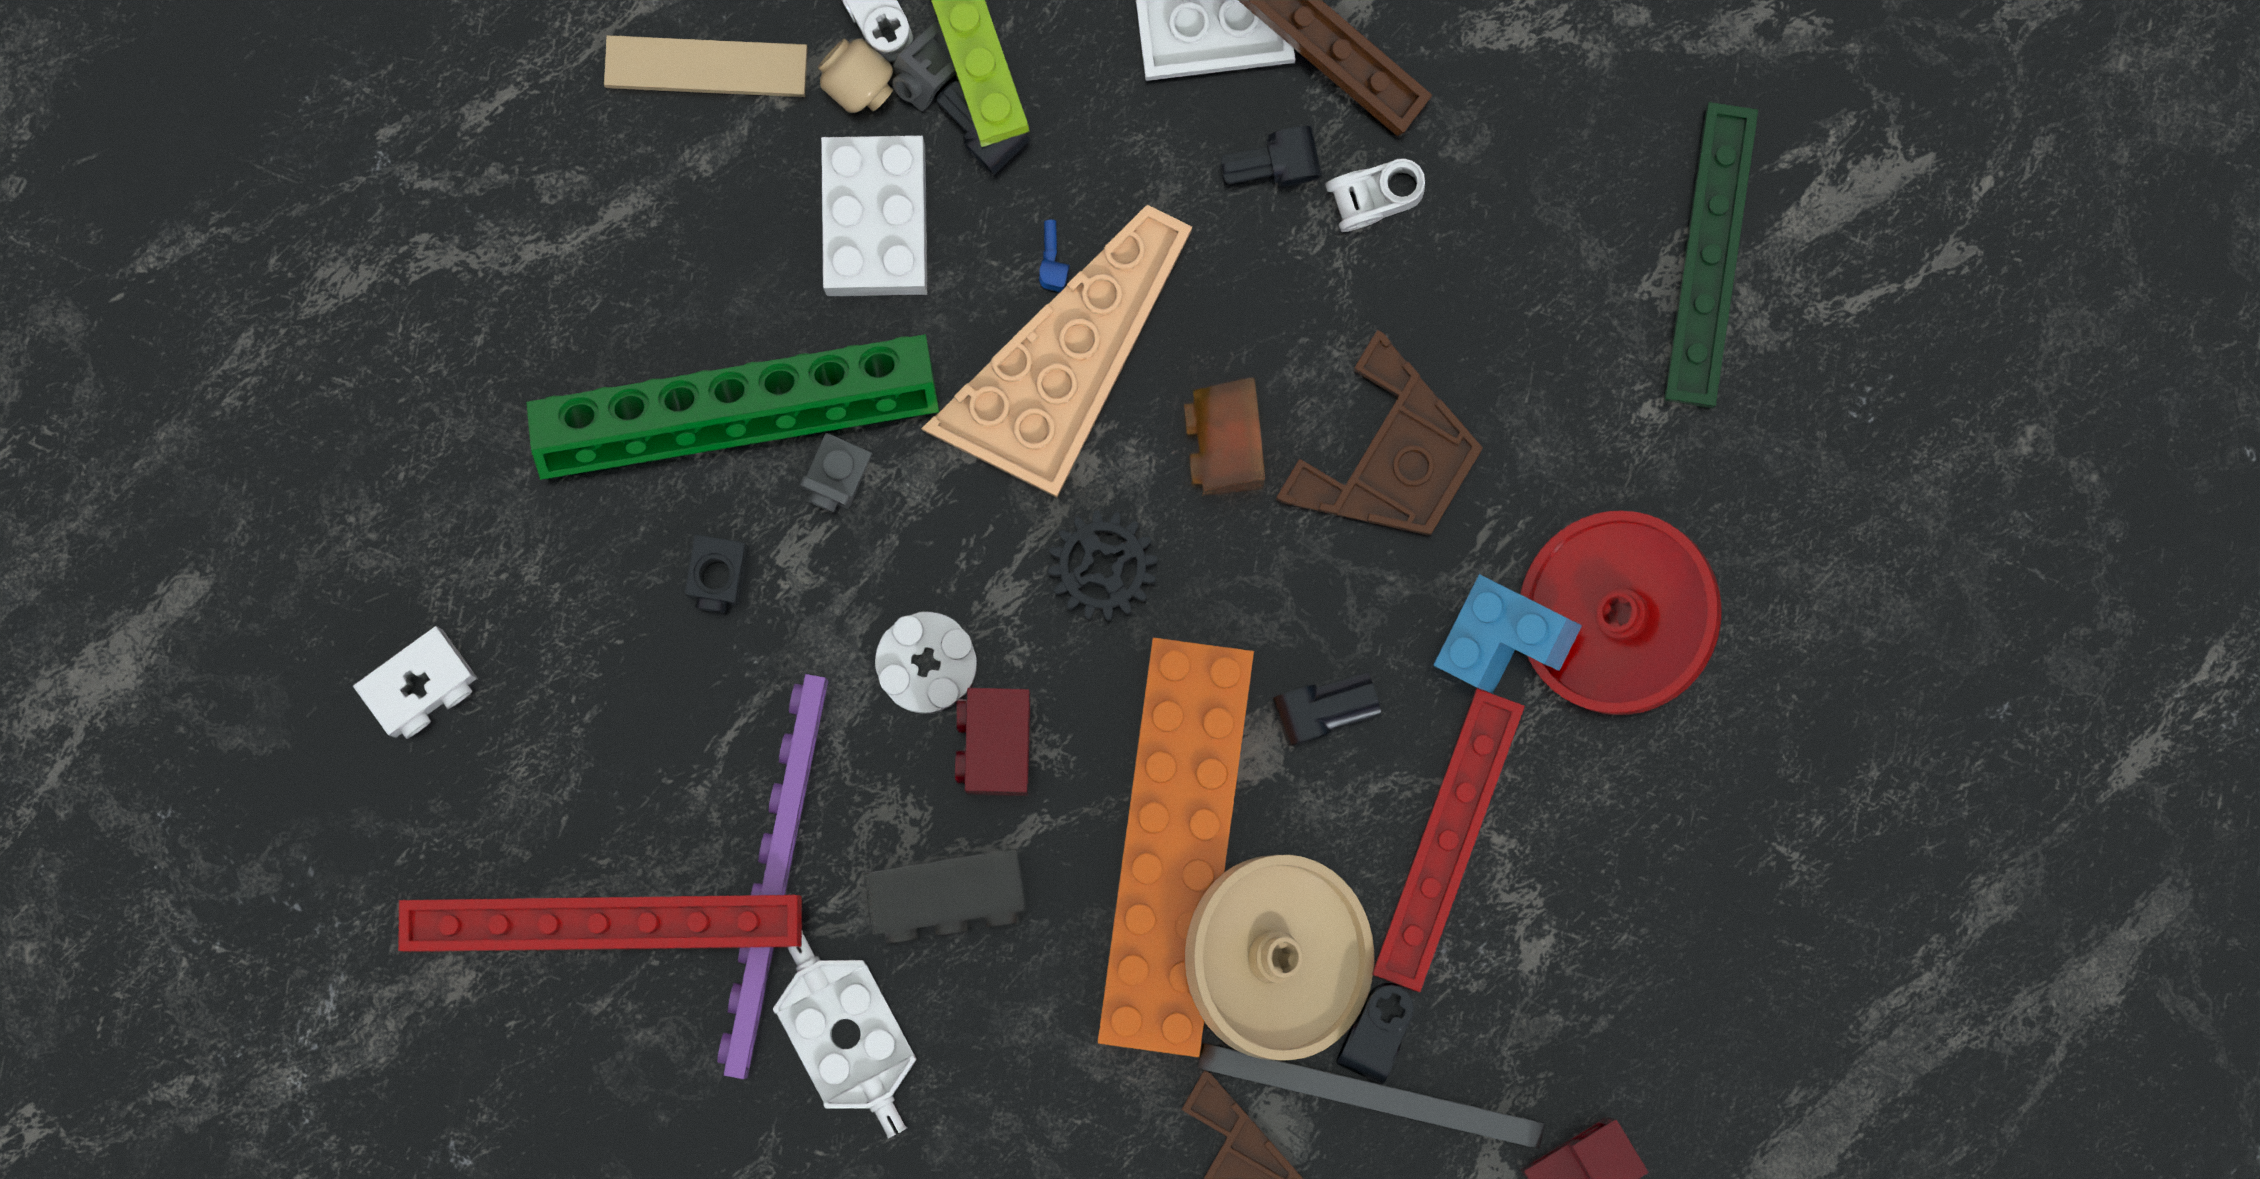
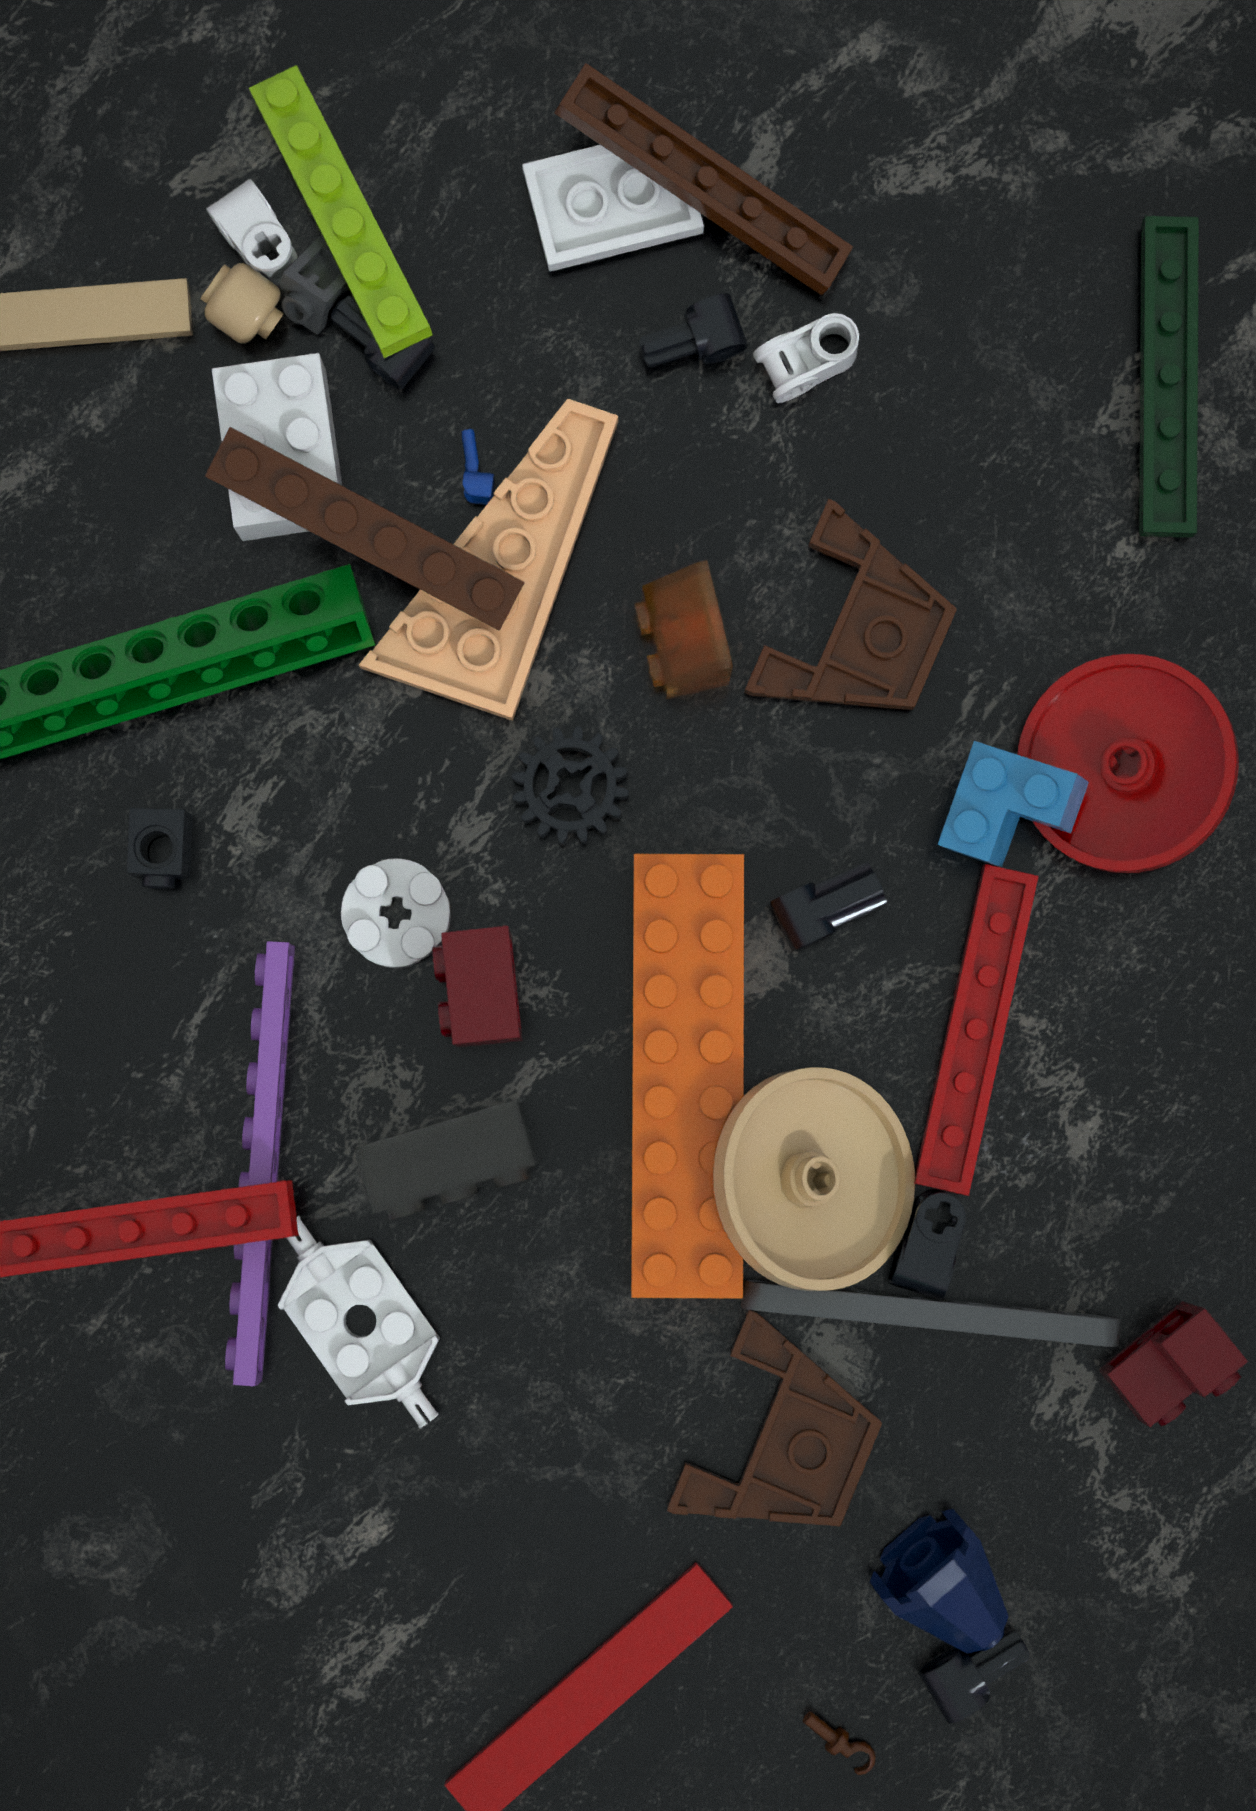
camera: 10 degrees left, 0 degrees up
(835, 473) = (274, 725): dark grey bracket -> none
(944, 306) = (364, 528): none -> reddish brown plate

